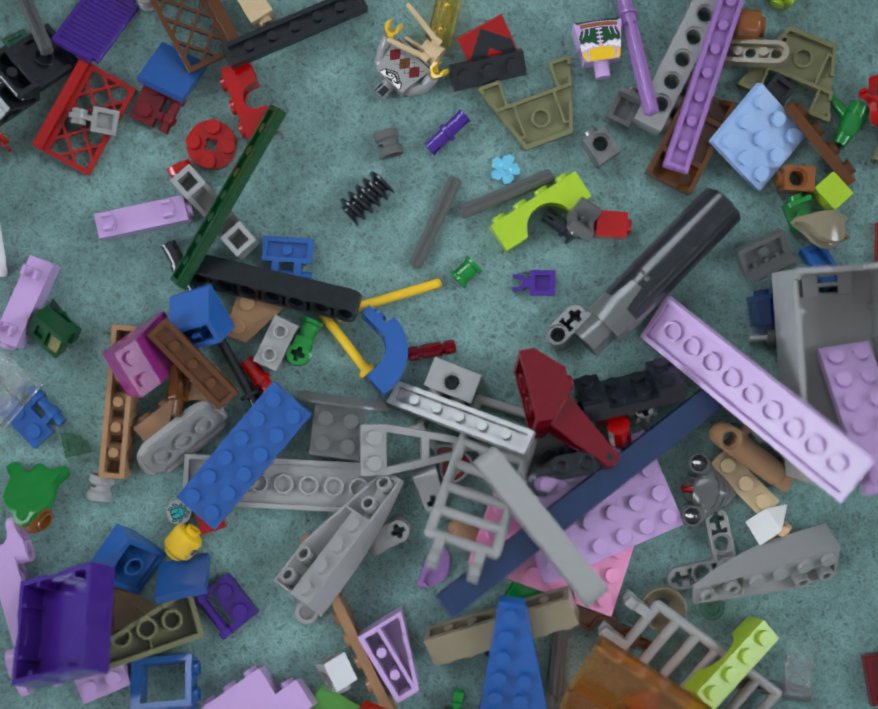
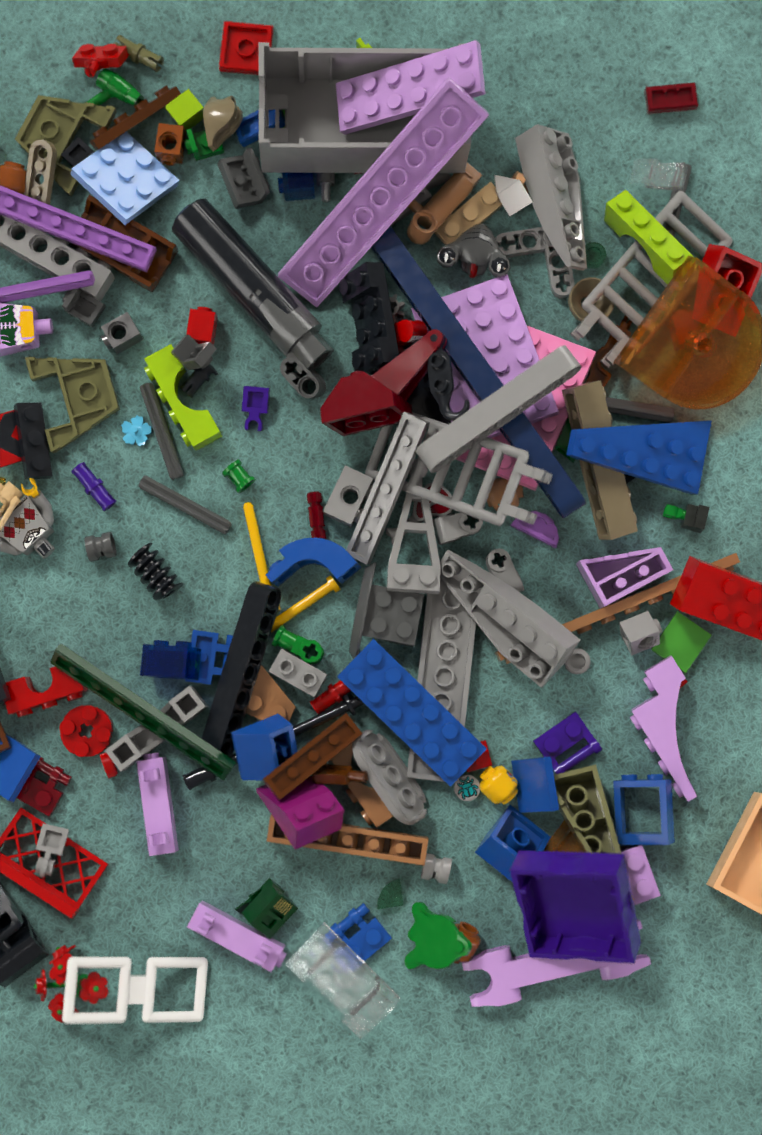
camera: 90 degrees left, 5 degrees down
(279, 220) = (170, 661): none -> clear blue brick

